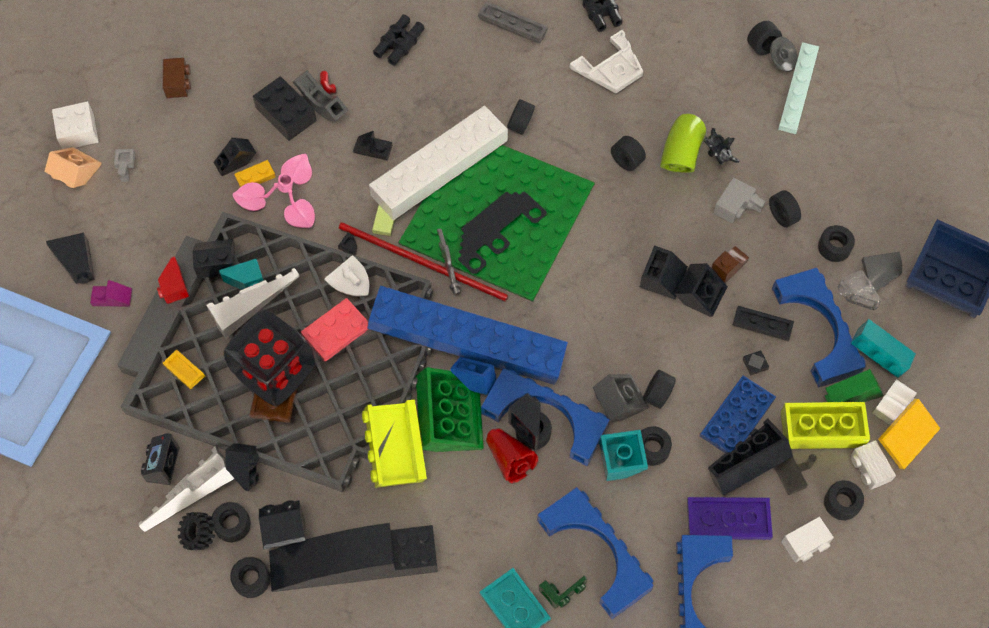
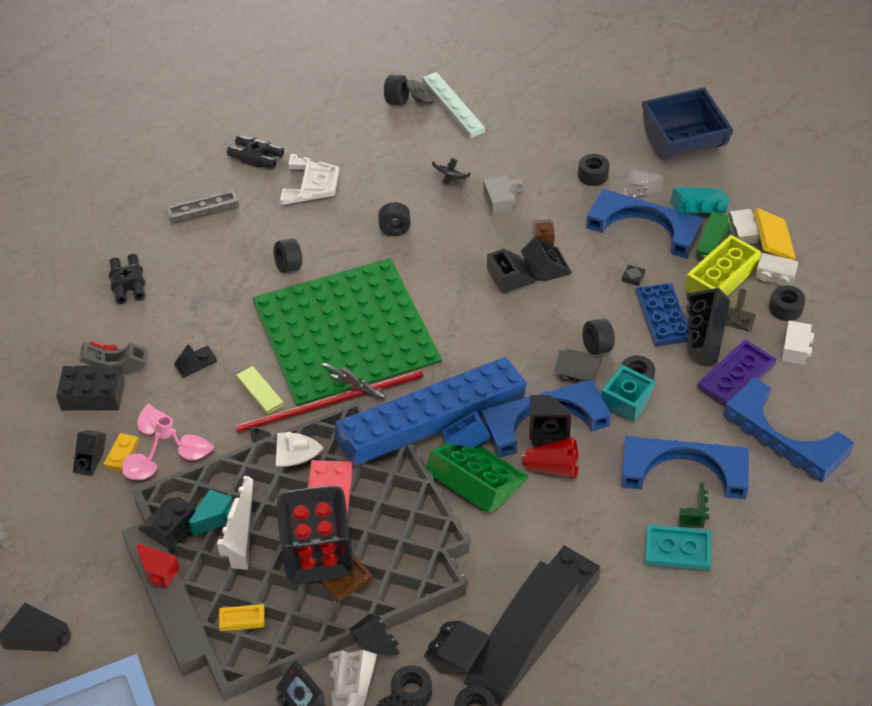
camera: 45 degrees left, 15 degrees down
(111, 295) = (107, 627): magenta slope -> none
(403, 454) = (481, 526): neon yellow panel -> none
(438, 162) = (265, 327): white brick -> none
(489, 223) = (350, 338): black piece -> none
(683, 144) = (425, 185): lime brick -> none
(763, 323) = (608, 248): black plate -> none
(785, 208) = (542, 163): black tyre -> none
(882, 268) = (637, 159): dark grey slope -> none

